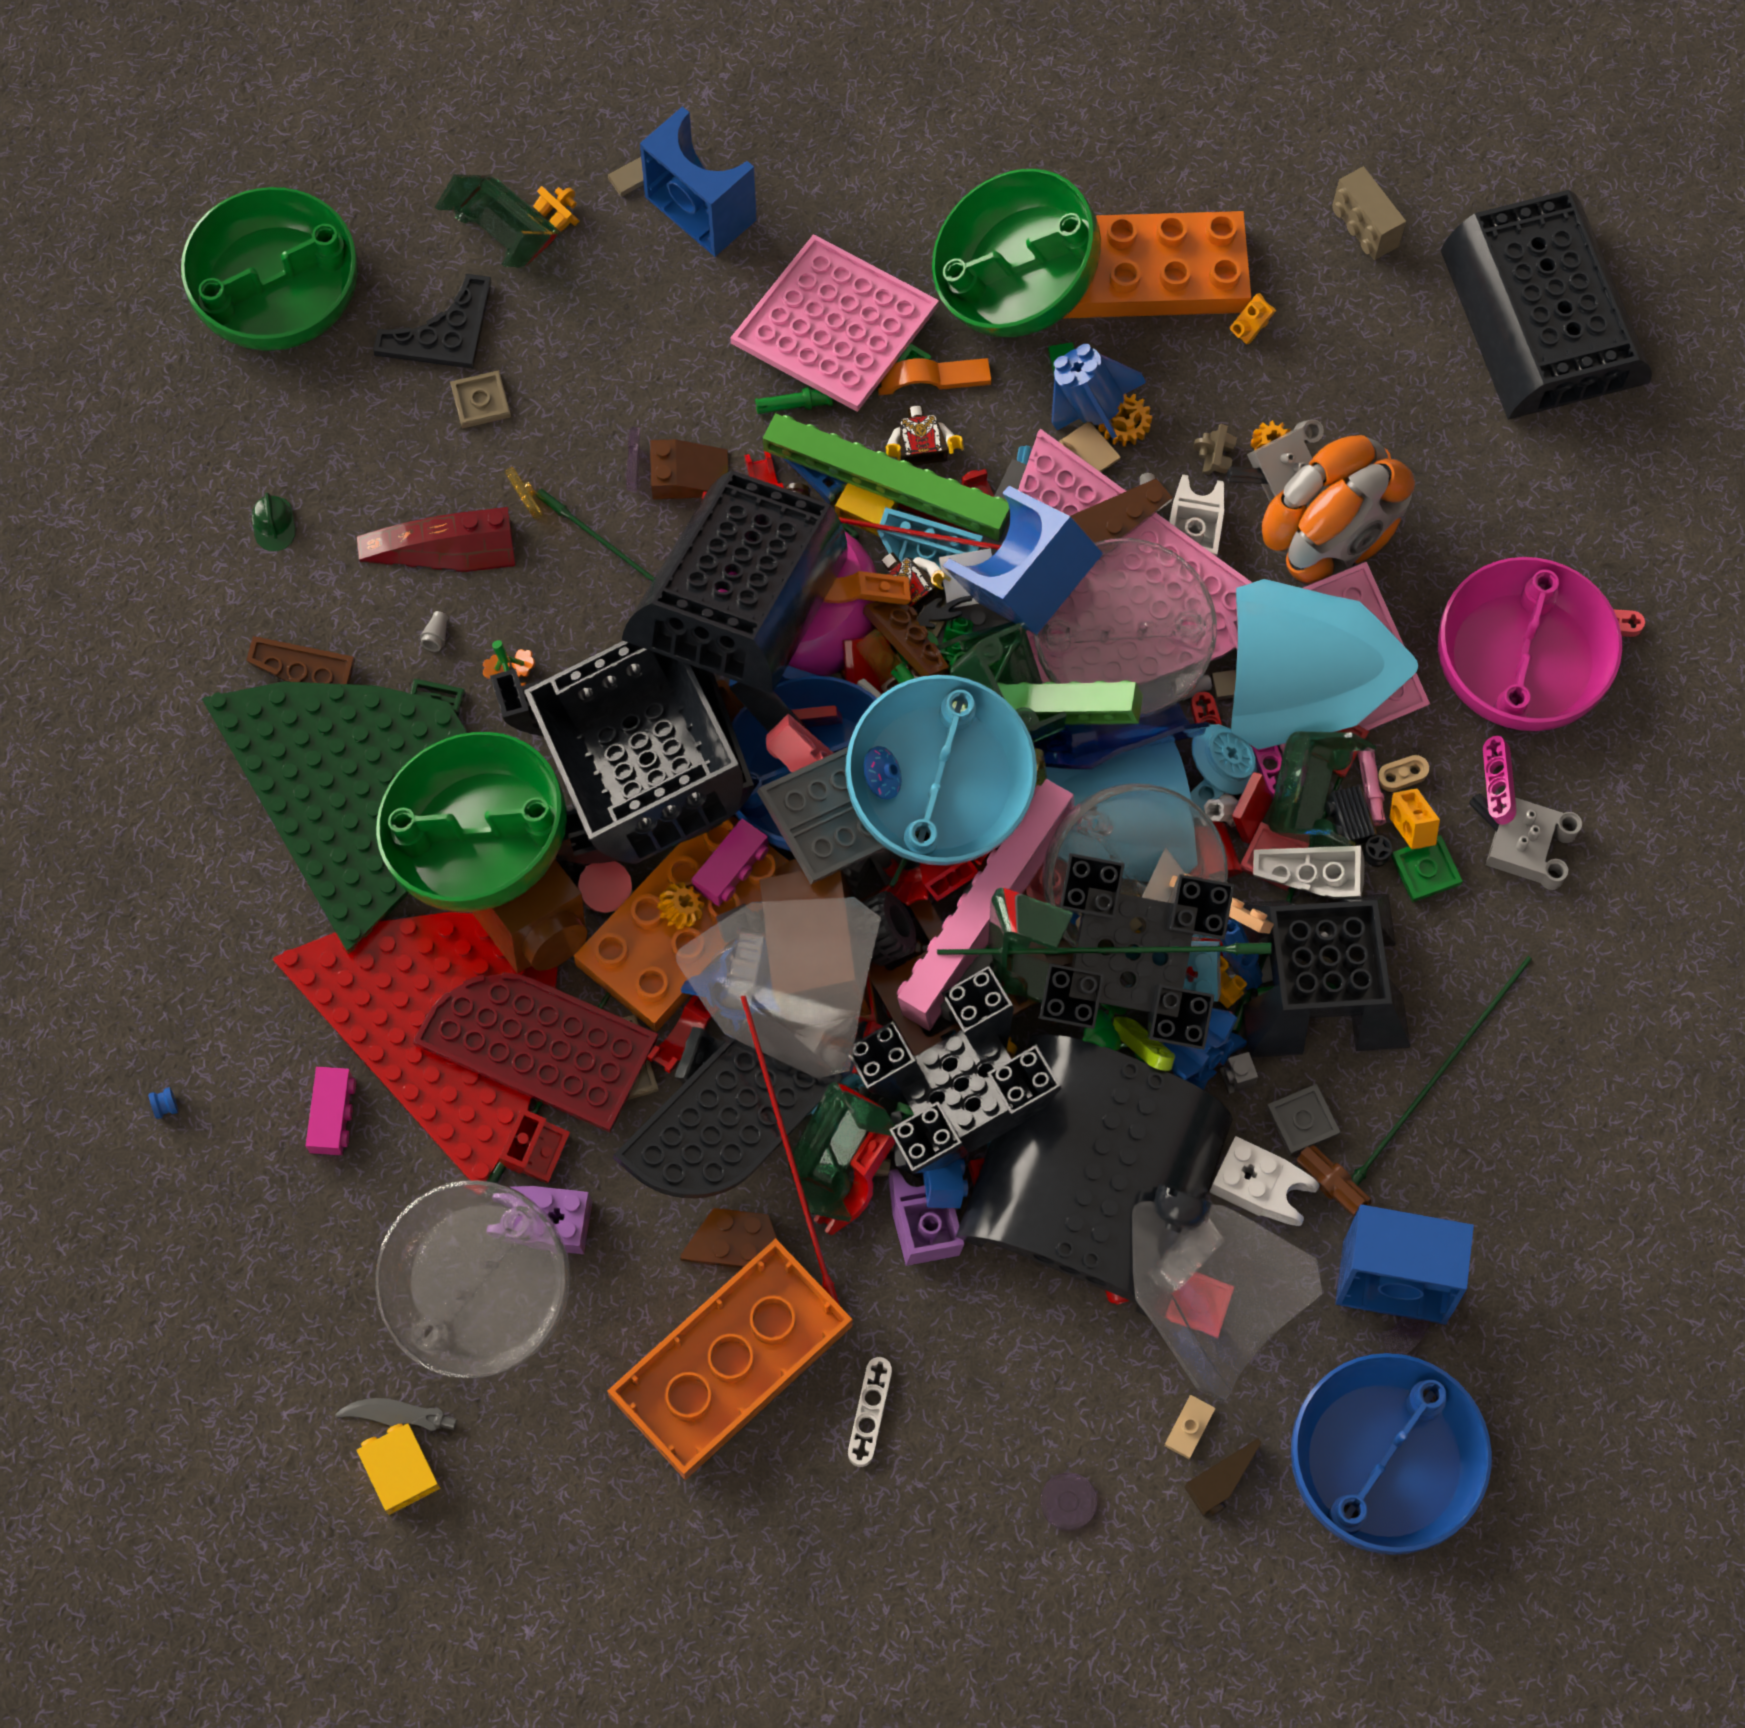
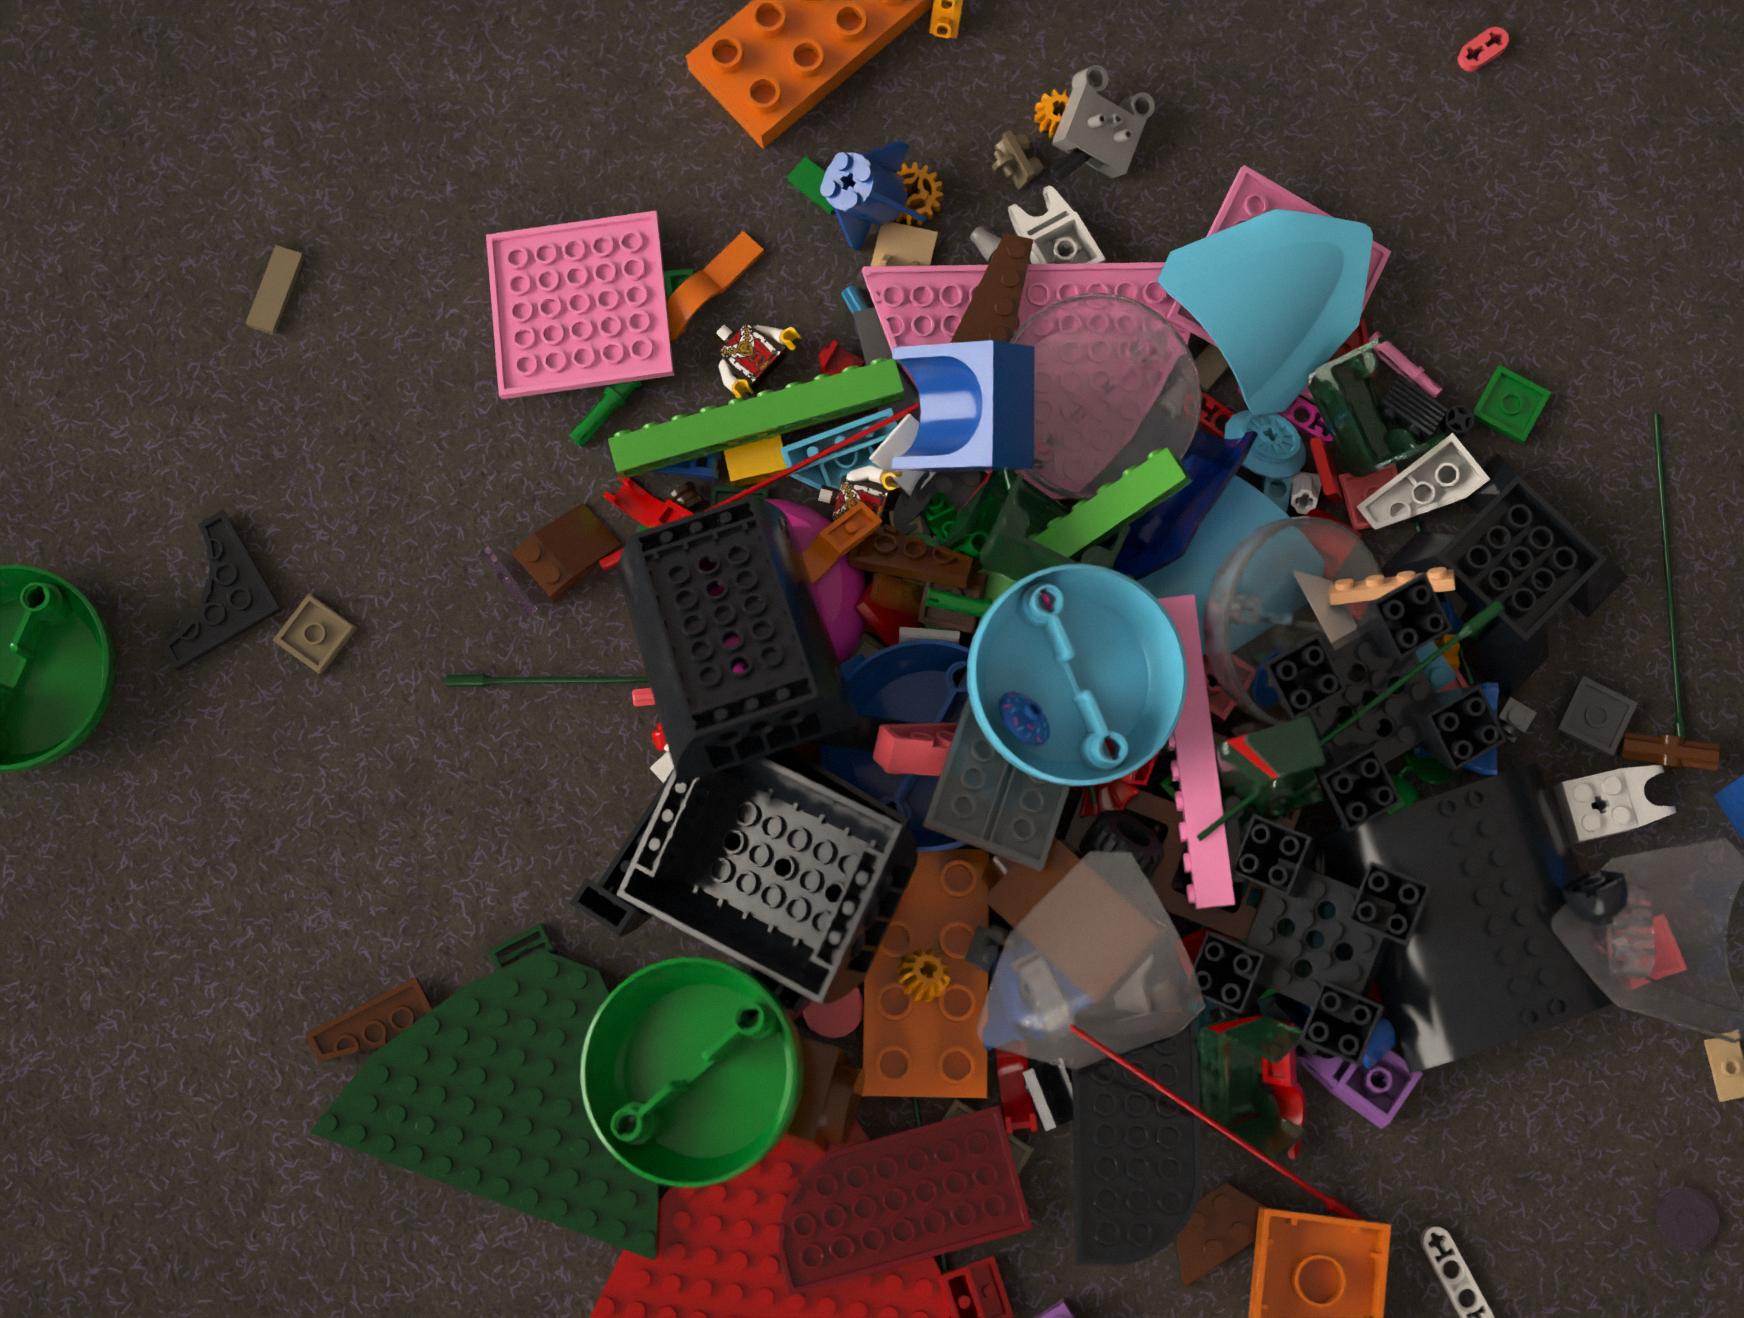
camera: 35 degrees left, 10 degrees up
(273, 523) = (225, 907): dark green piece -> none
(435, 632) = (468, 891): light grey cone -> none
(447, 541) = (407, 796): dark red wedge -> none
(500, 662) = (555, 877): orange plant -> none
(501, 214) = (182, 440): clear green windscreen -> none
(525, 492) = (434, 691): clear yellow plate -> none
(547, 202) = (212, 393): light orange hips -> none
(702, 202) = (345, 284): blue piece -> none
(731, 862) = (937, 899): dark pink brick -> none
(819, 716) = (890, 697): red tile -> none
(1017, 253) = (698, 112): green cylinder -> none
(1137, 1039) = (1424, 768): lime beam -> none
(1338, 508) = (1186, 135): piece -> none
(1401, 773) = (1419, 334): tan plate -> none
(1414, 818) = (1470, 369): light orange brick -> none
(1503, 778) = (1510, 273): dark pink beam -> none
(1524, 842) = (1569, 309): light grey piece -> none
(1529, 643) = (1438, 130): dark pink cylinder -> none

